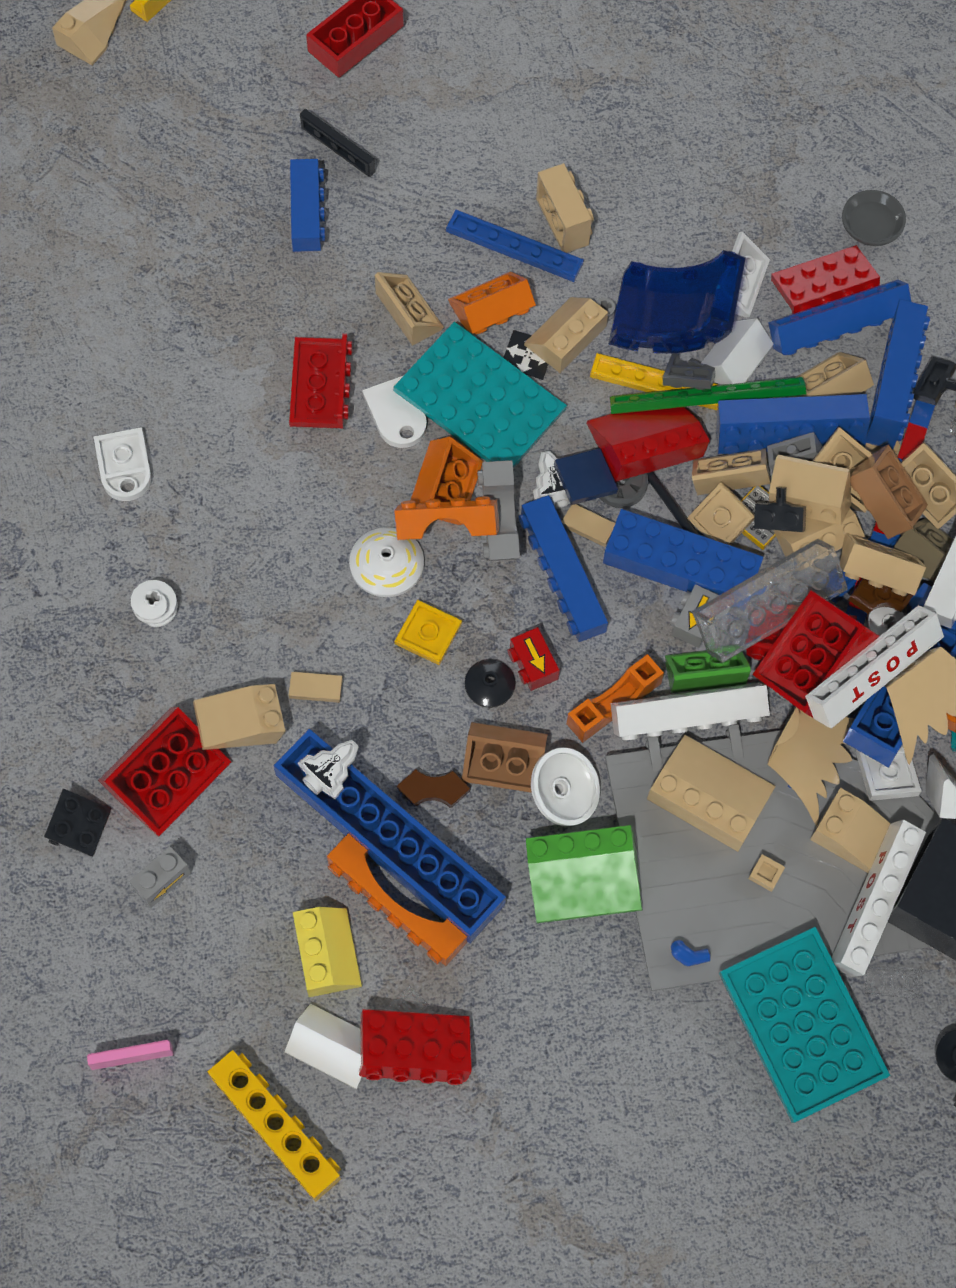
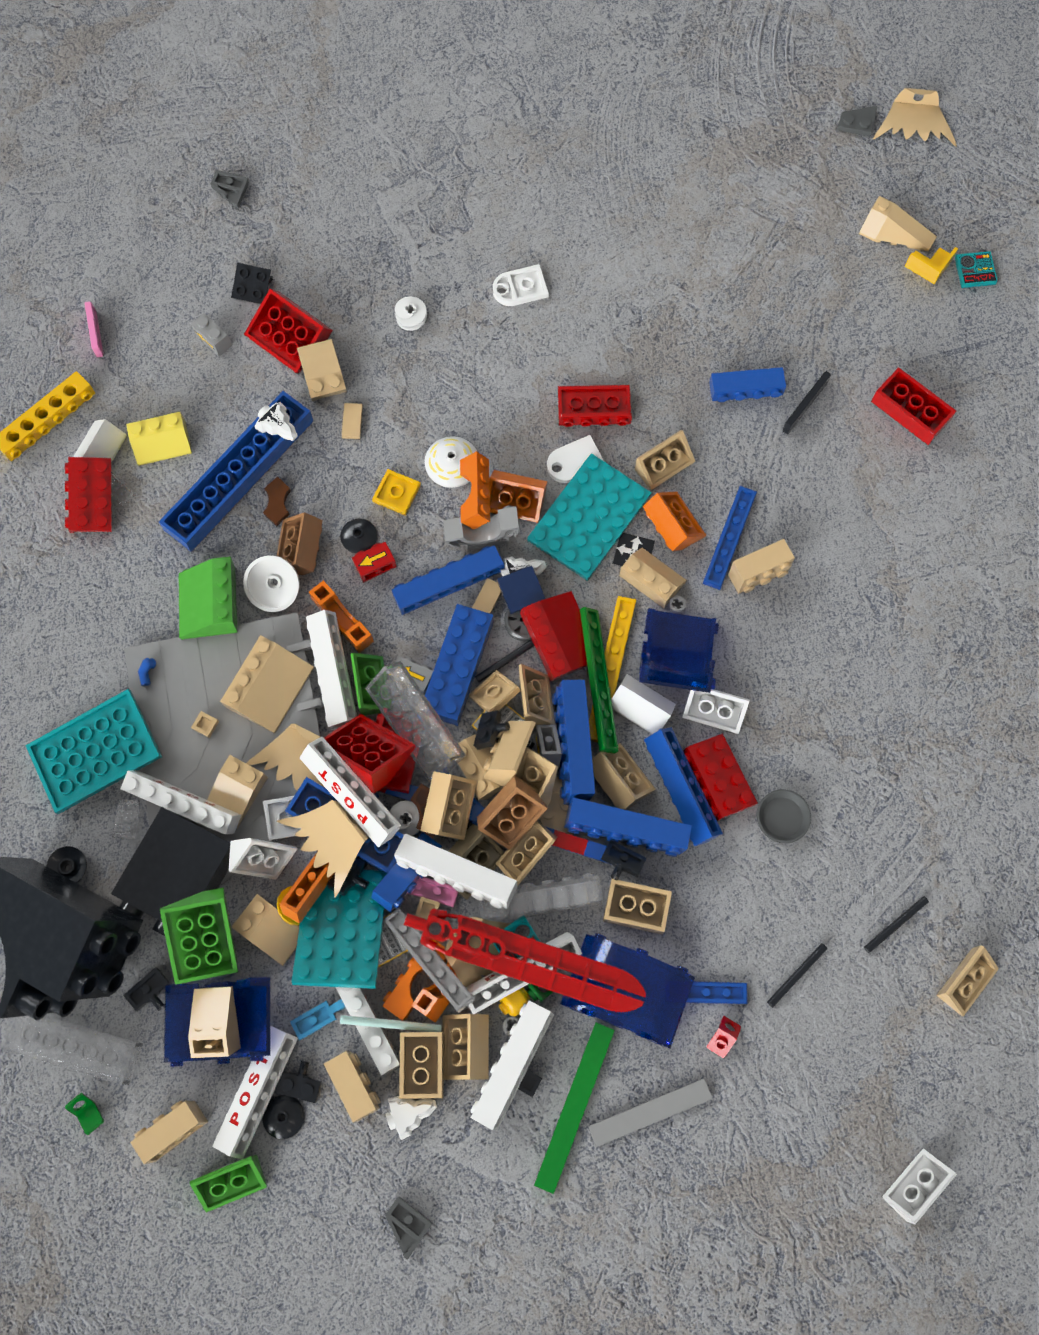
camera: 90 degrees right, 5 degrees up
(438, 938) = (193, 470): orange arch -> none
(690, 374) = (617, 663): dark grey wing -> none

